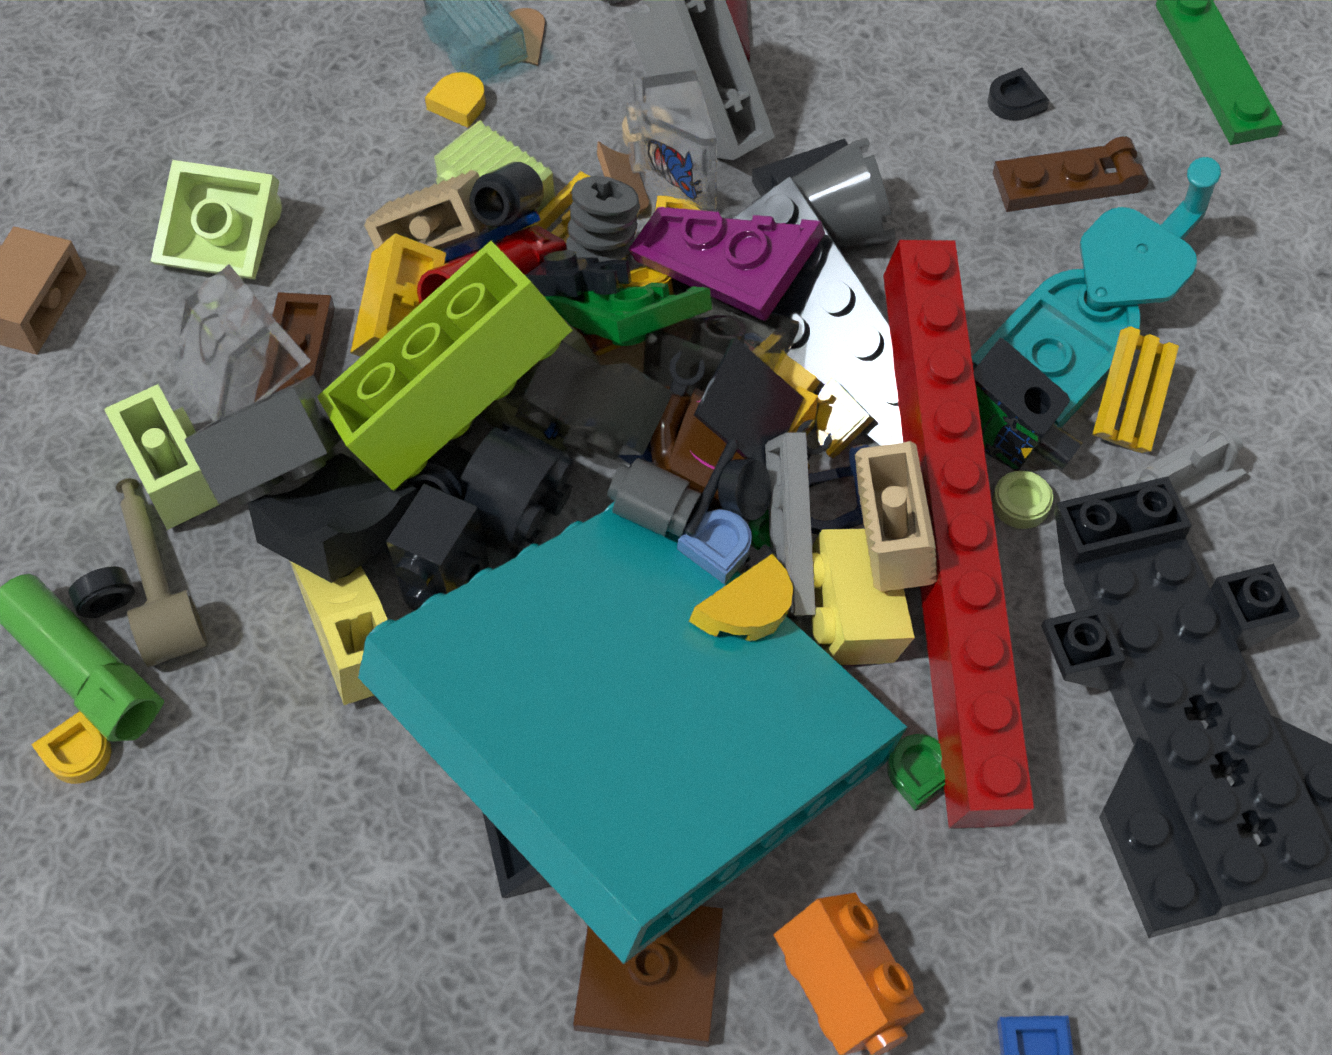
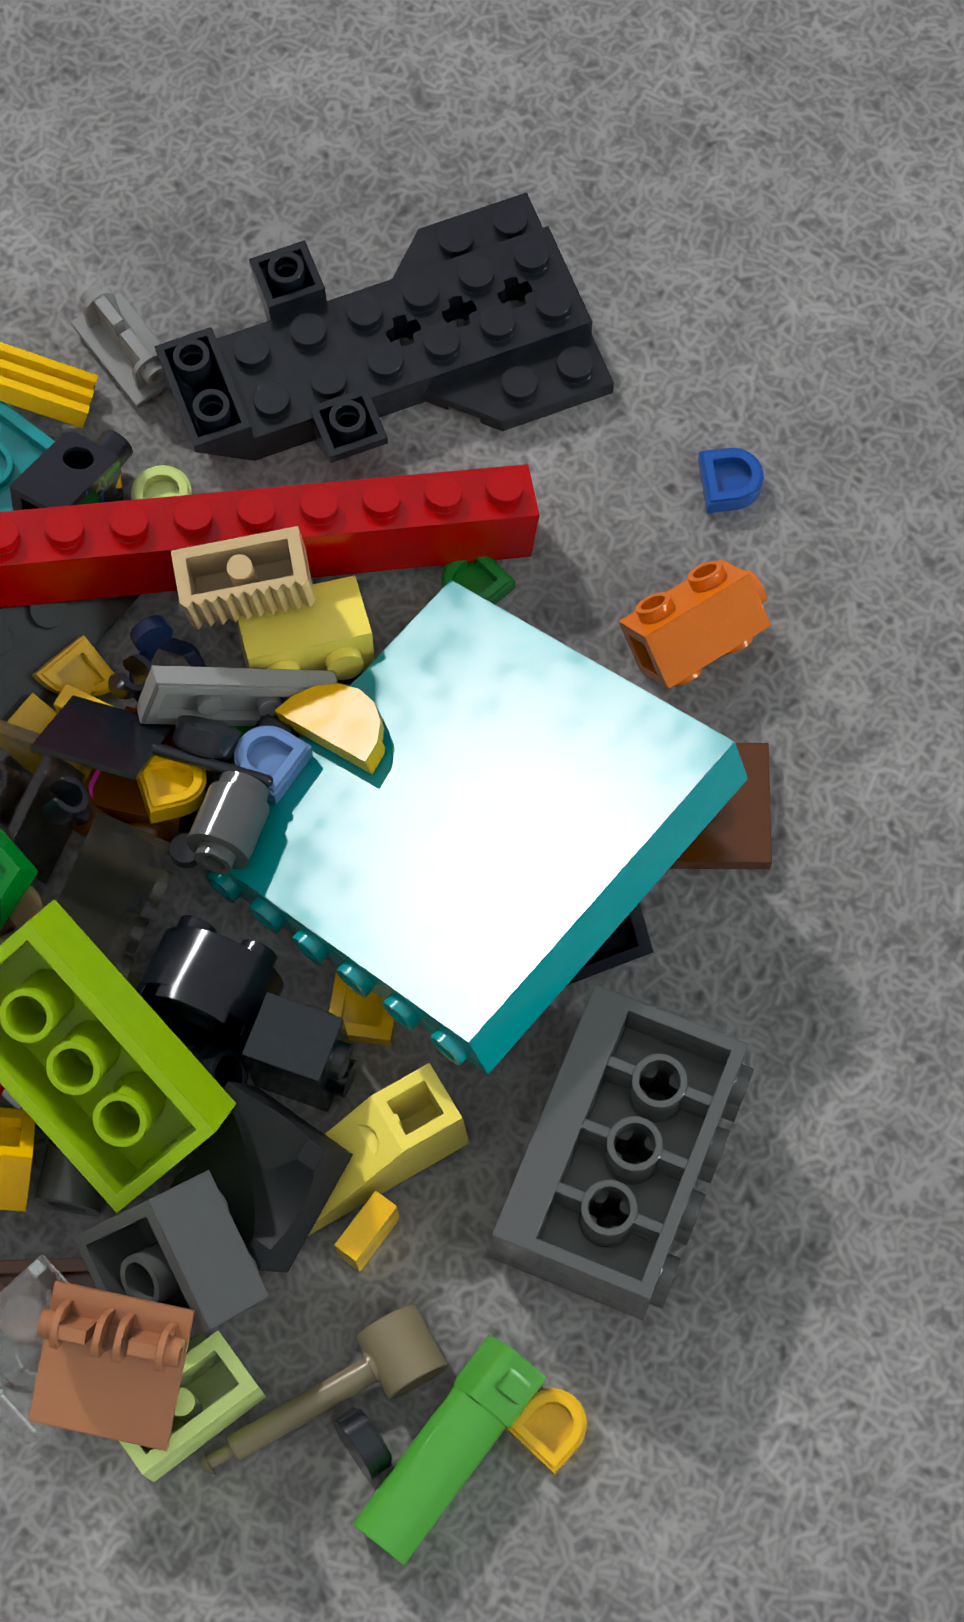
camera: 95 degrees left, 10 degrees up
(185, 374) = (110, 1365): none -> nougat hinge
(278, 608) = (367, 1231): none -> yellow tile
(283, 818) = (604, 1112): none -> dark grey brick
(695, 457) = (171, 789): none -> yellow tile

